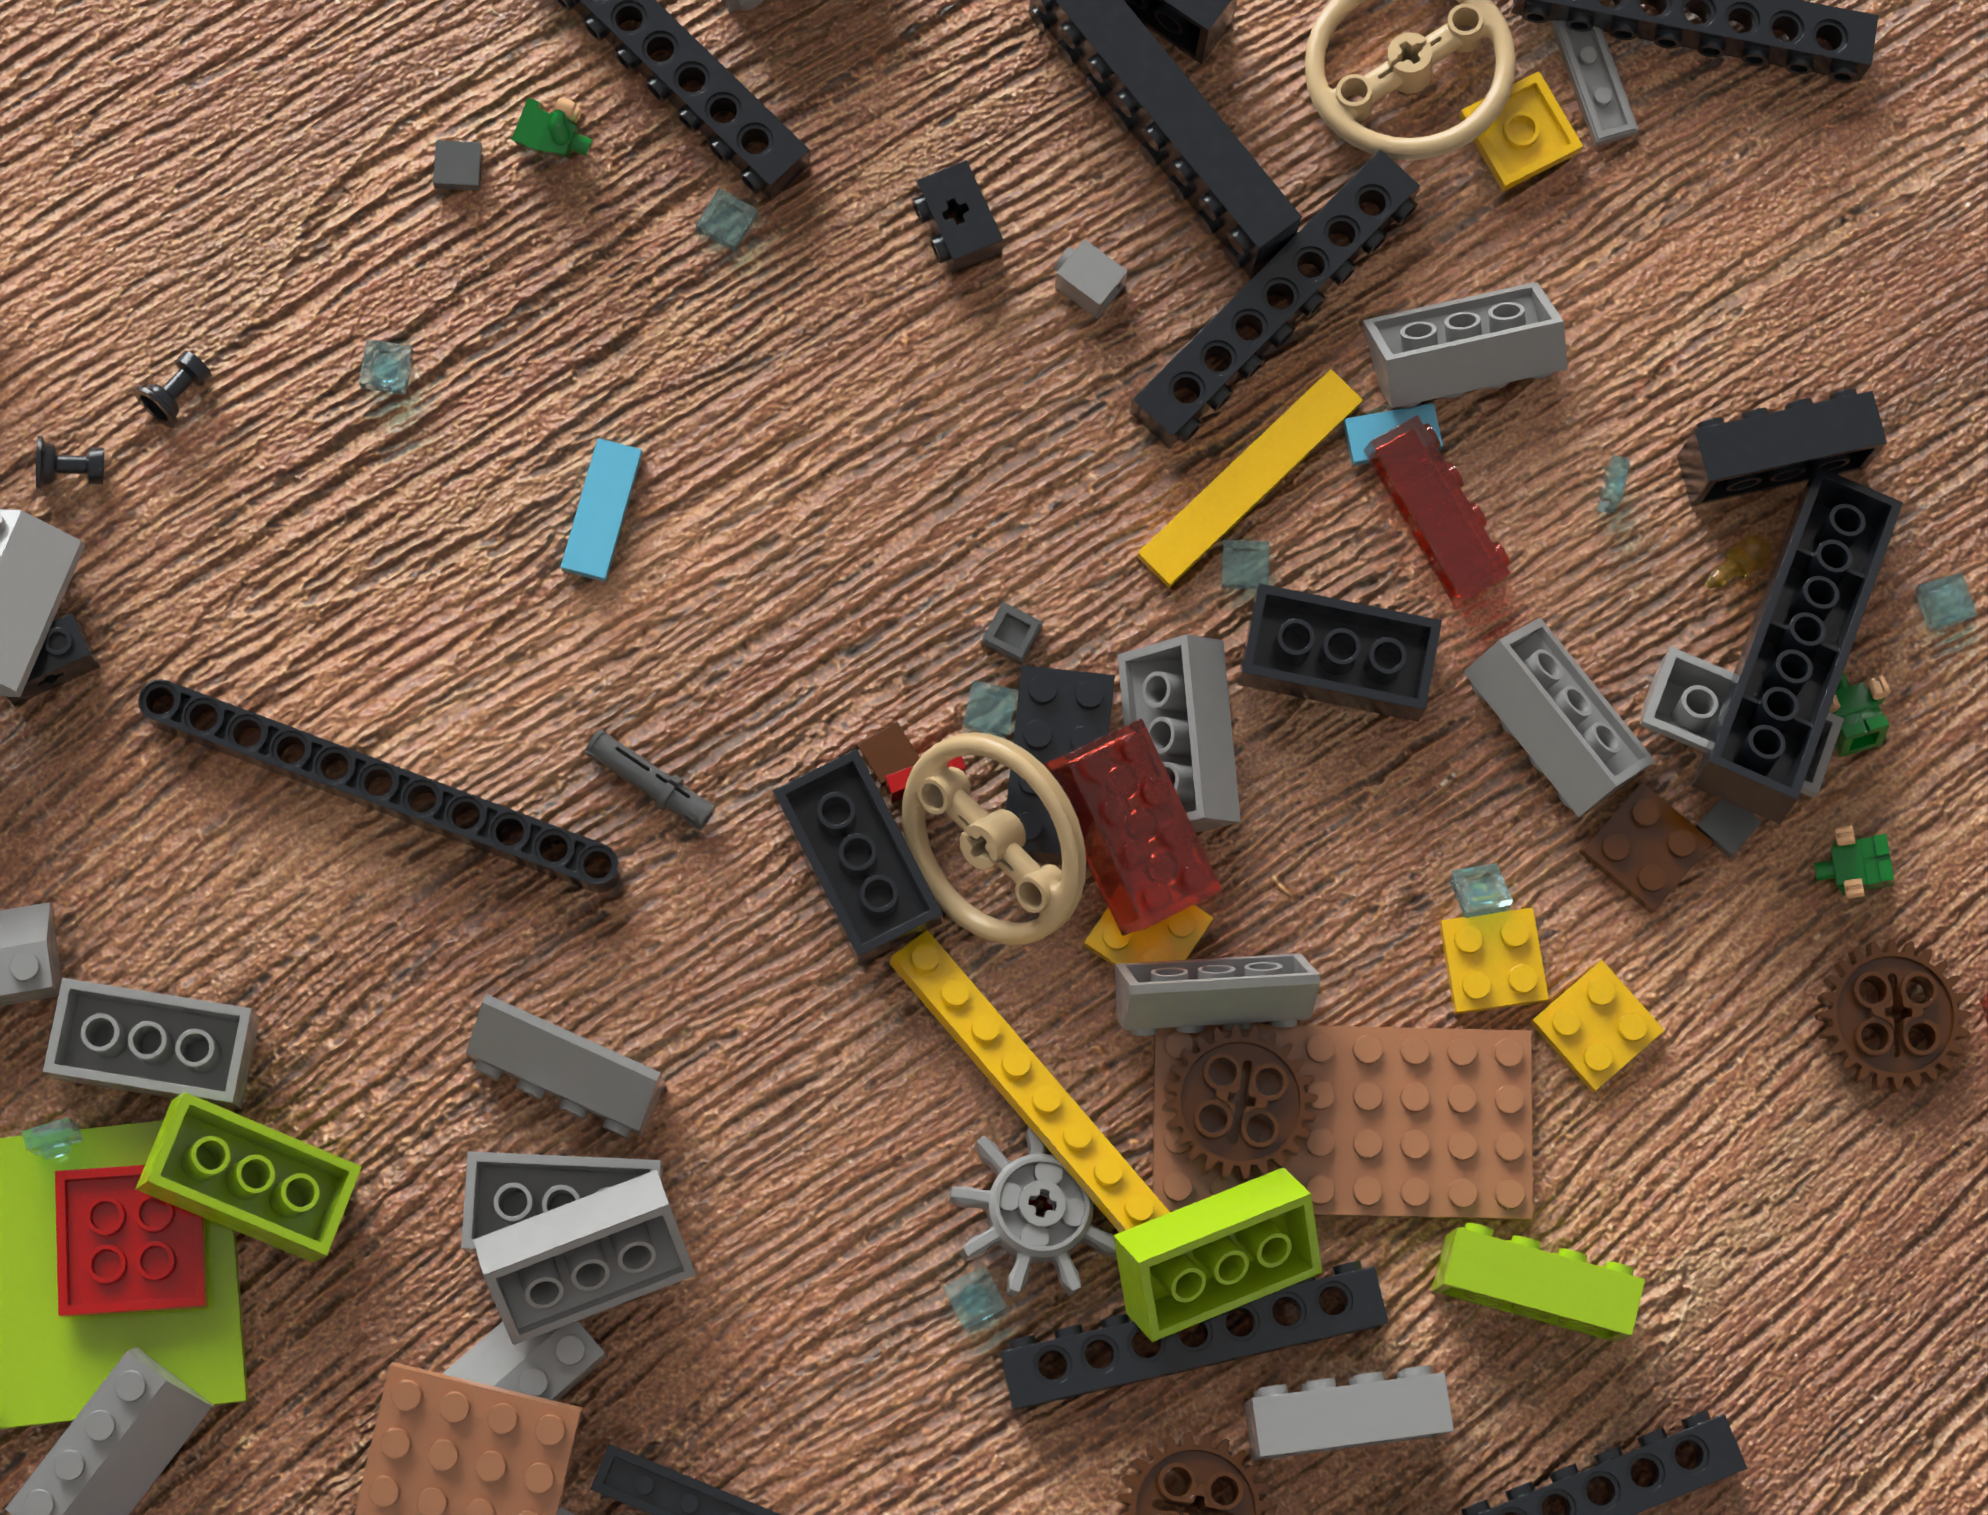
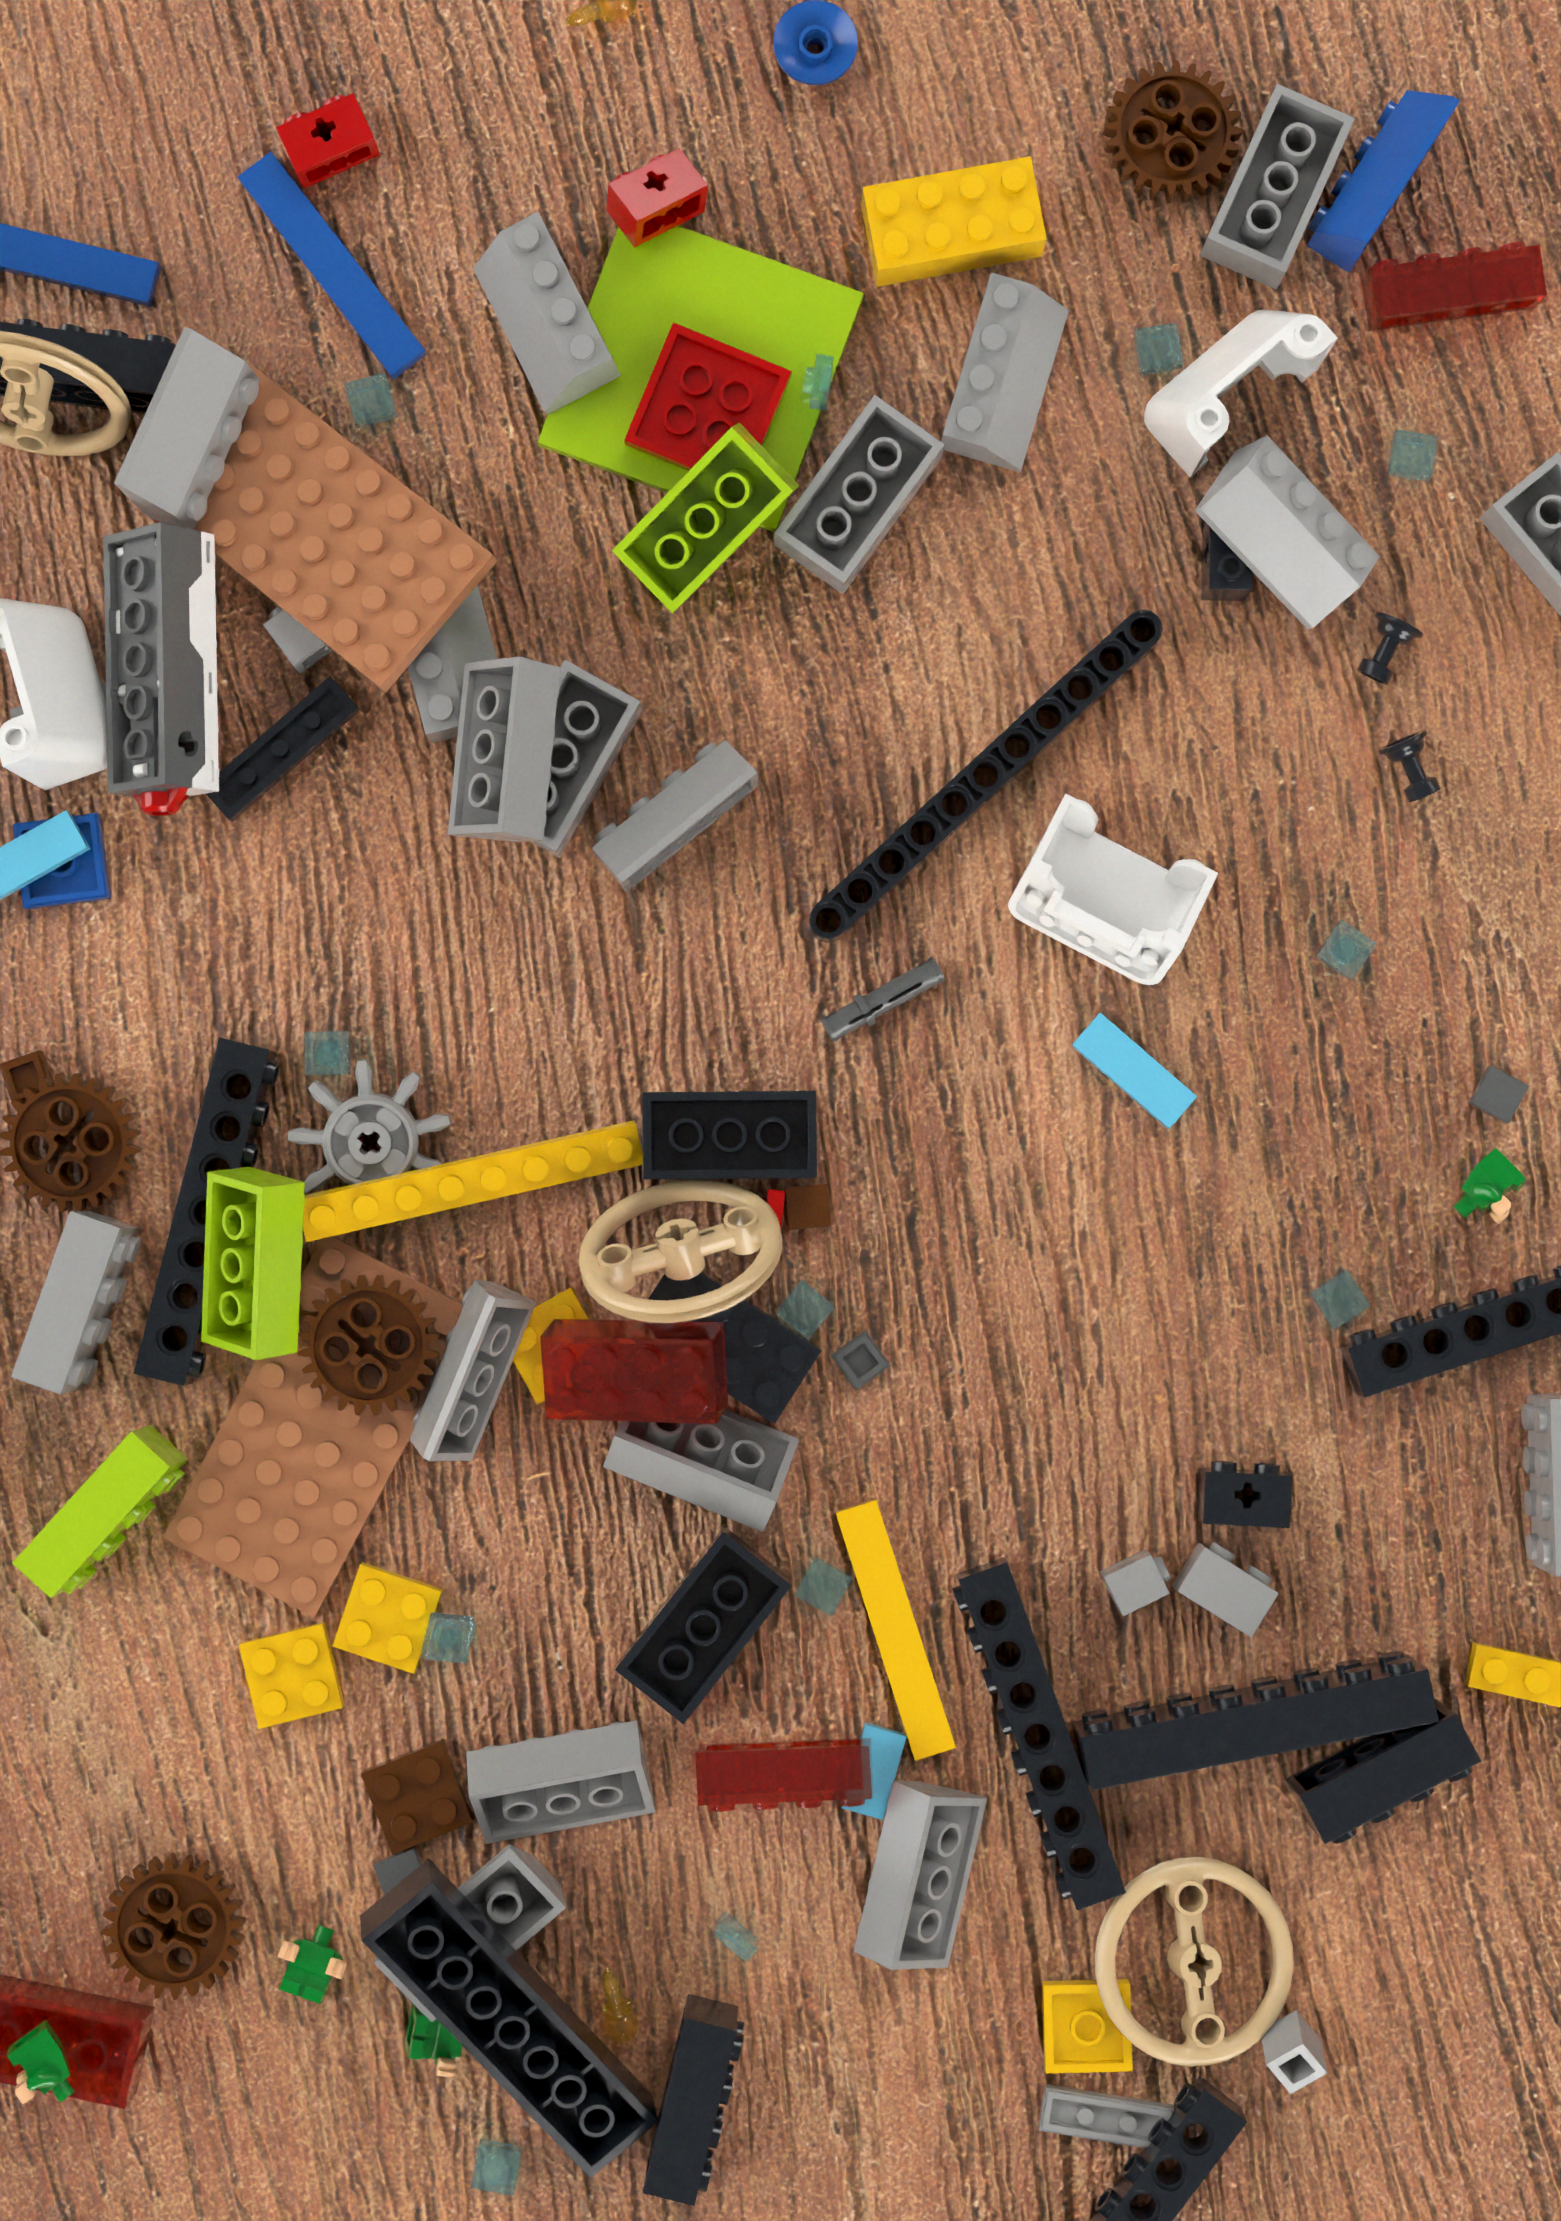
camera: 125 degrees right, 10 degrees up
(442, 608) = (1108, 897): none -> white windscreen
(1053, 194) = (1225, 1589): none -> light grey brick

